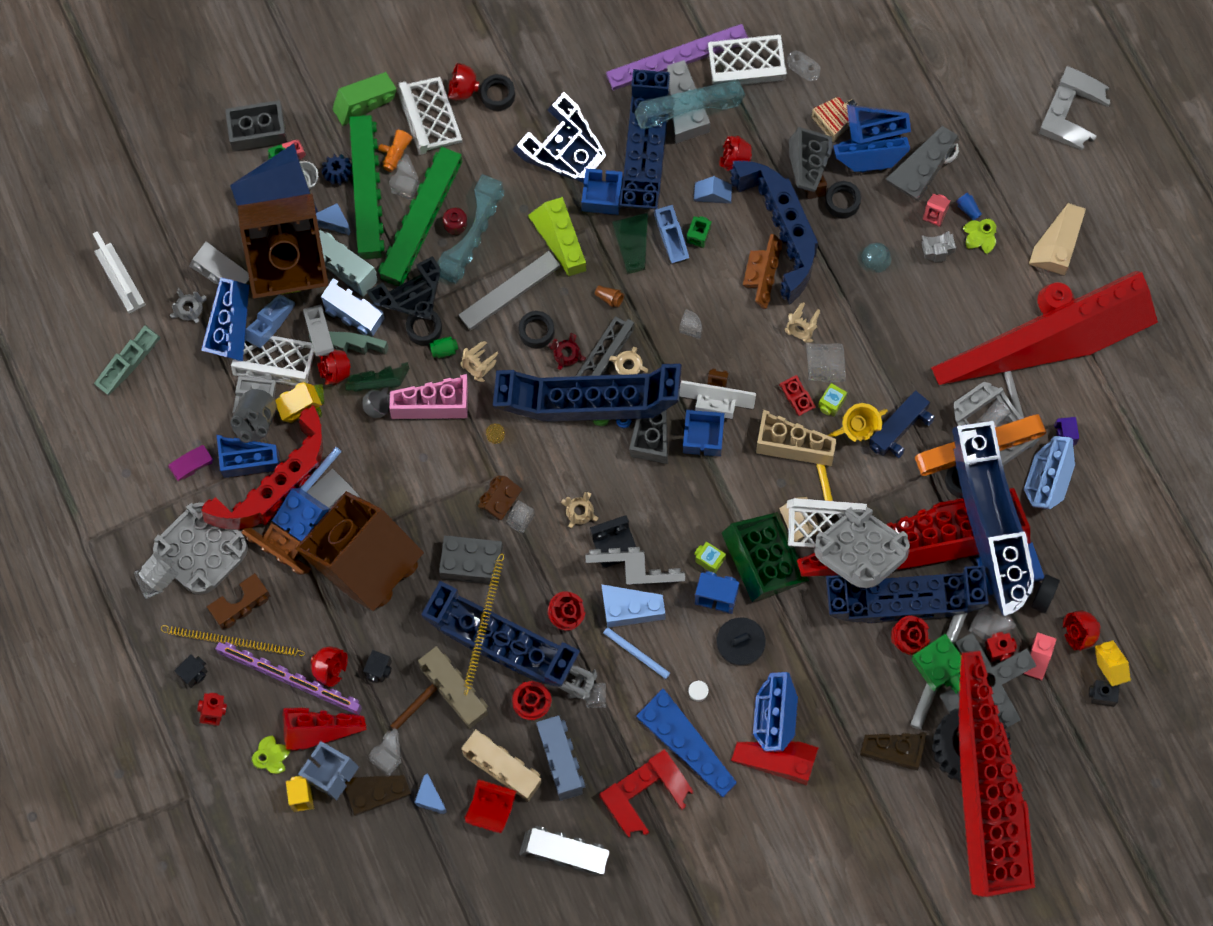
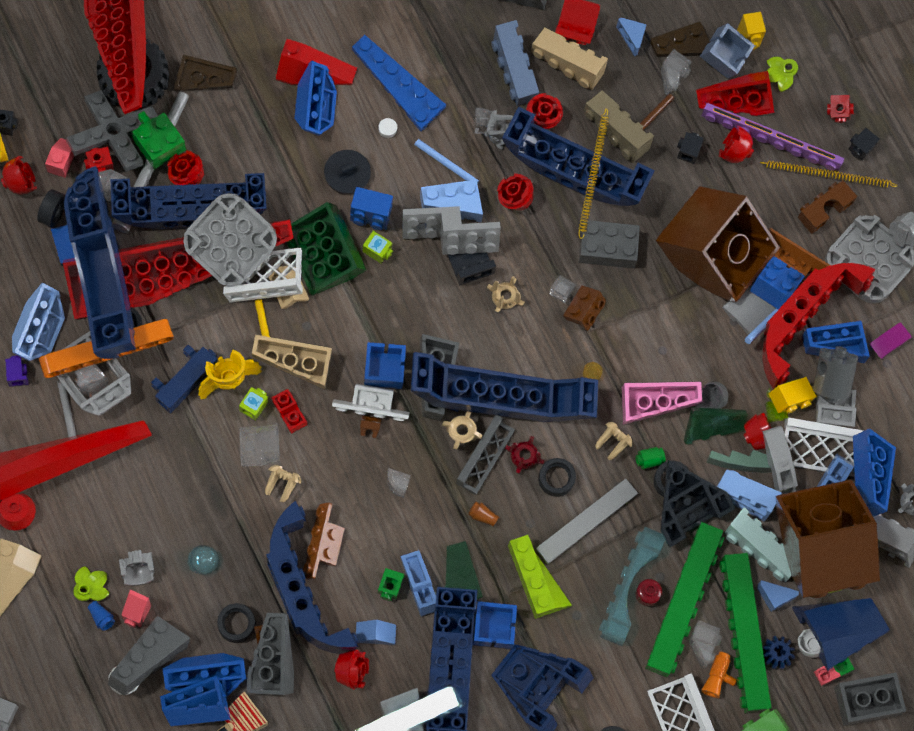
camera: 165 degrees right, 0 degrees up
(657, 768) = (461, 35): red wedge -> none

